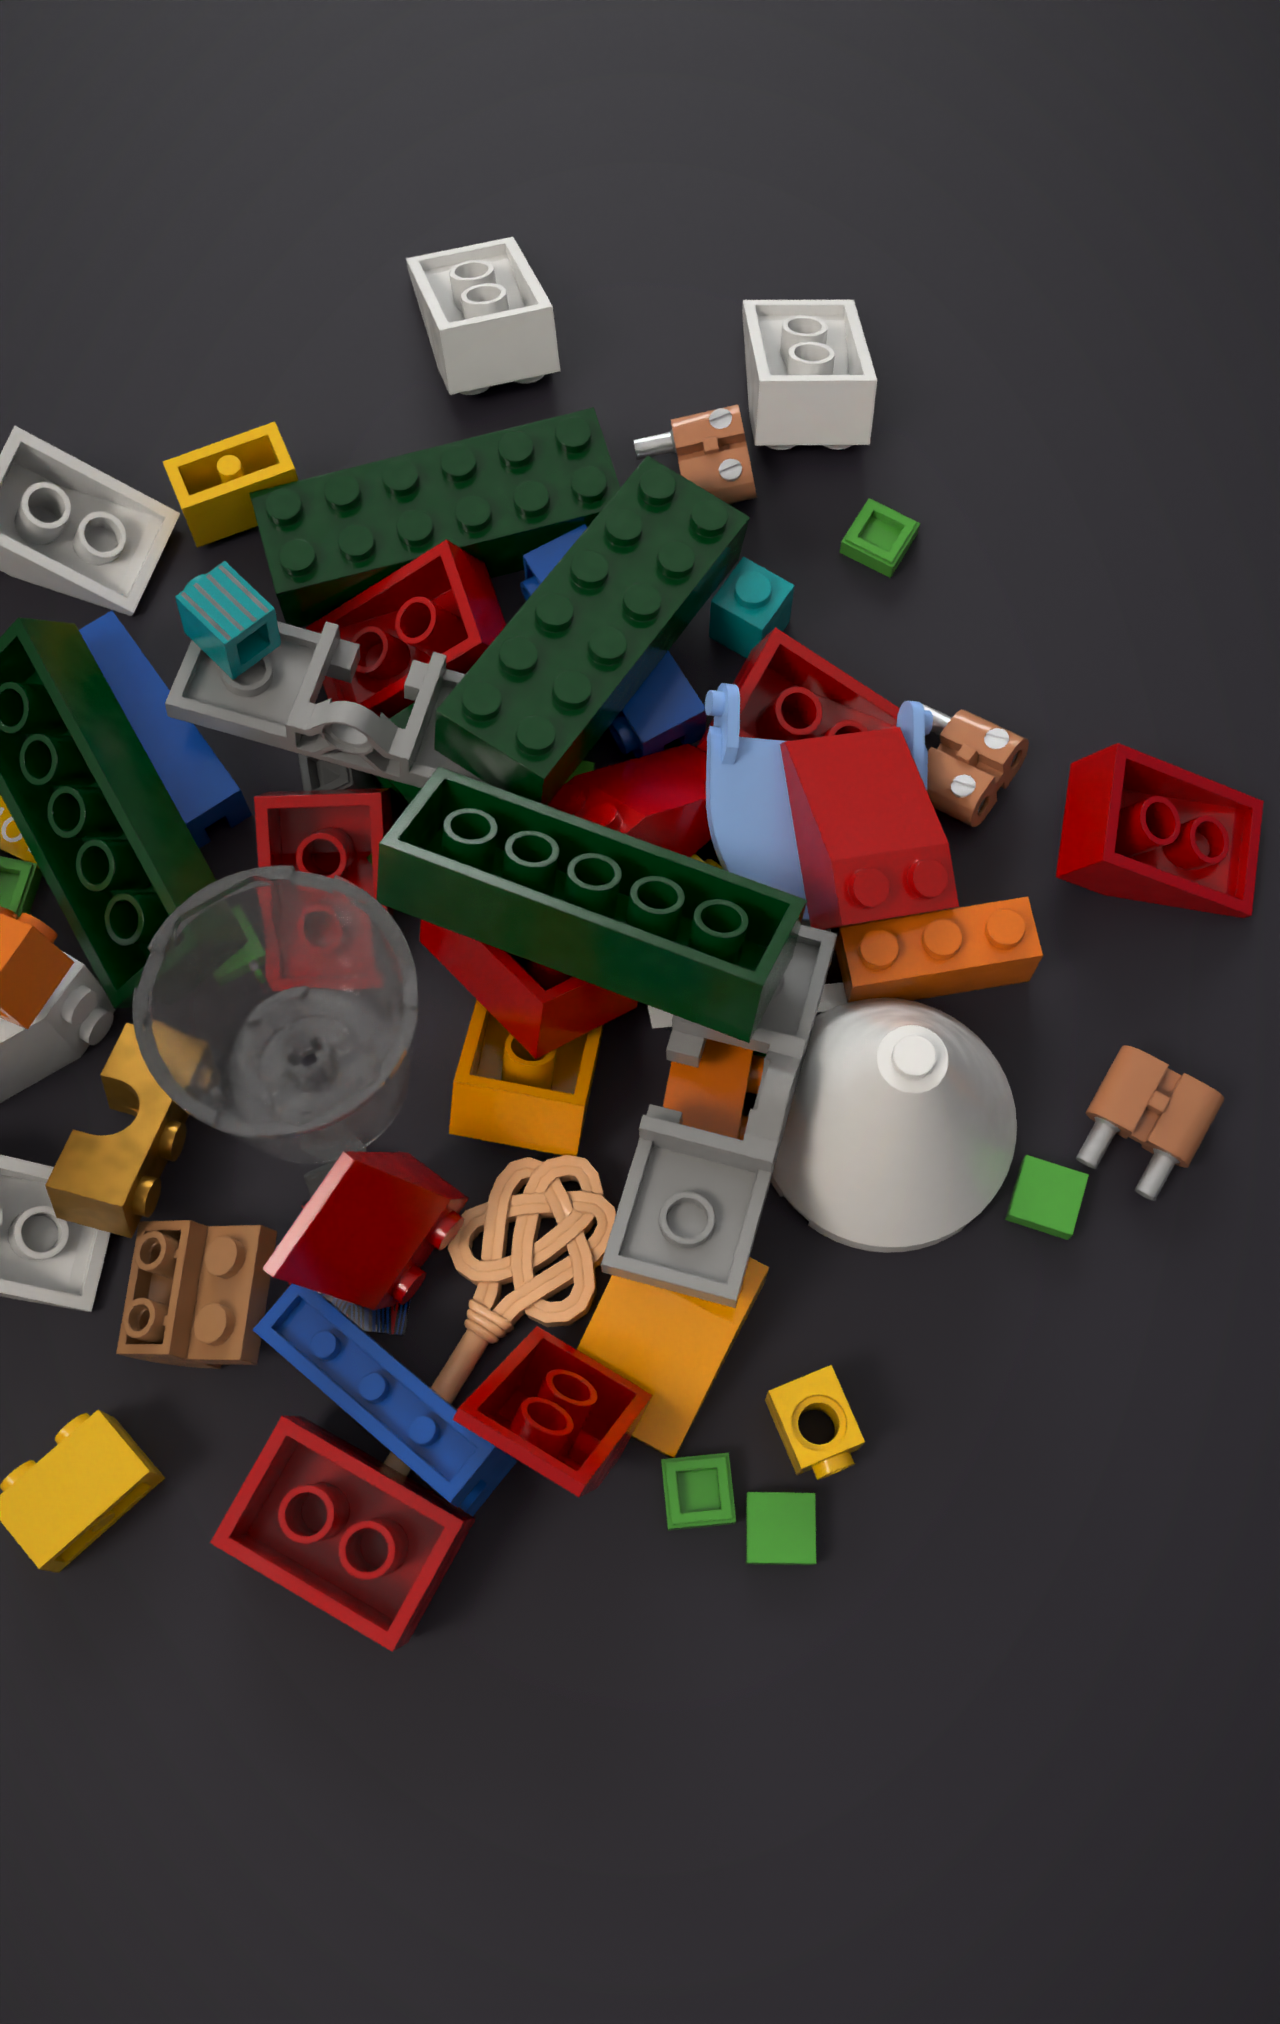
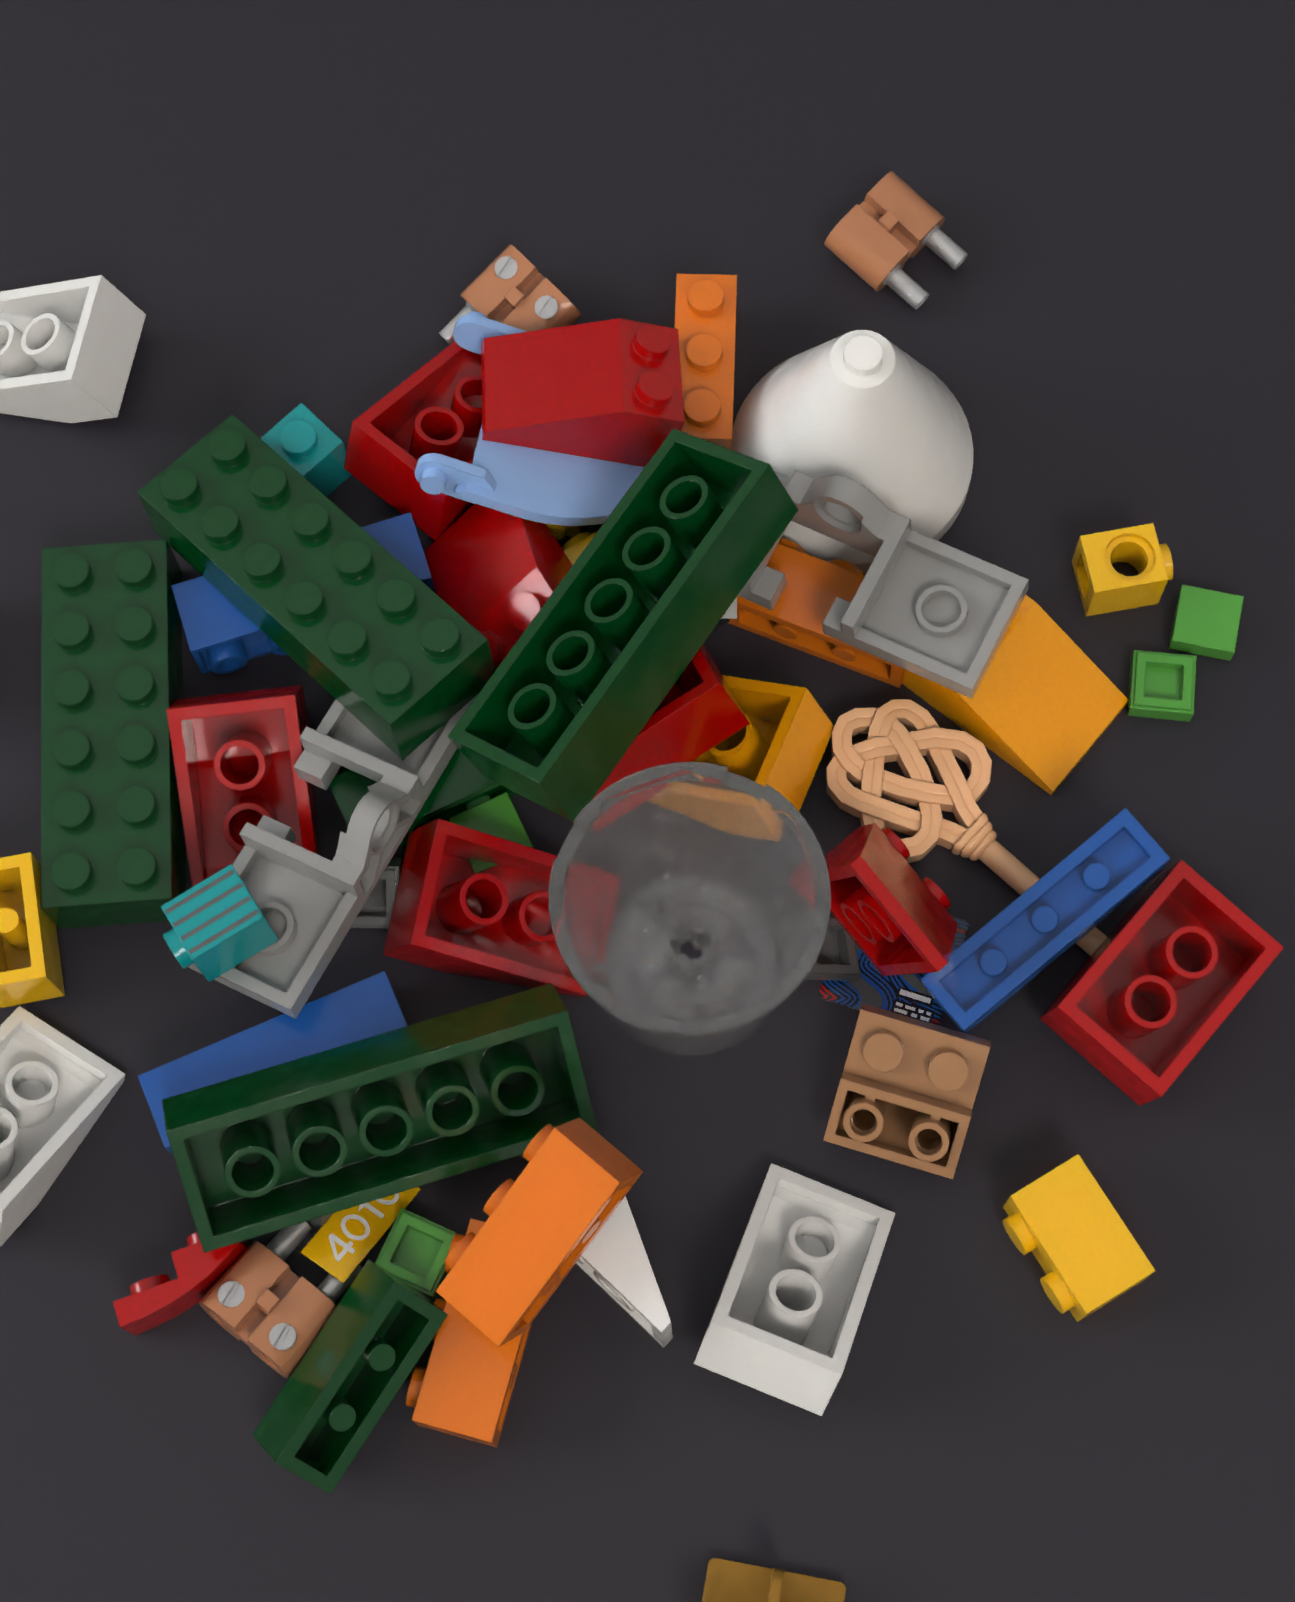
camera: 75 degrees left, 0 degrees up
(117, 1176) = (681, 1105): pearl gold arch -> none
(556, 1412) = (1090, 766): red slope -> none
(709, 452) = (112, 462): nougat piece -> none
(879, 537) = (246, 332): bright green tile -> none
(1047, 1197) = (947, 340): bright green tile -> none
(1159, 834) = (626, 166): red slope -> none

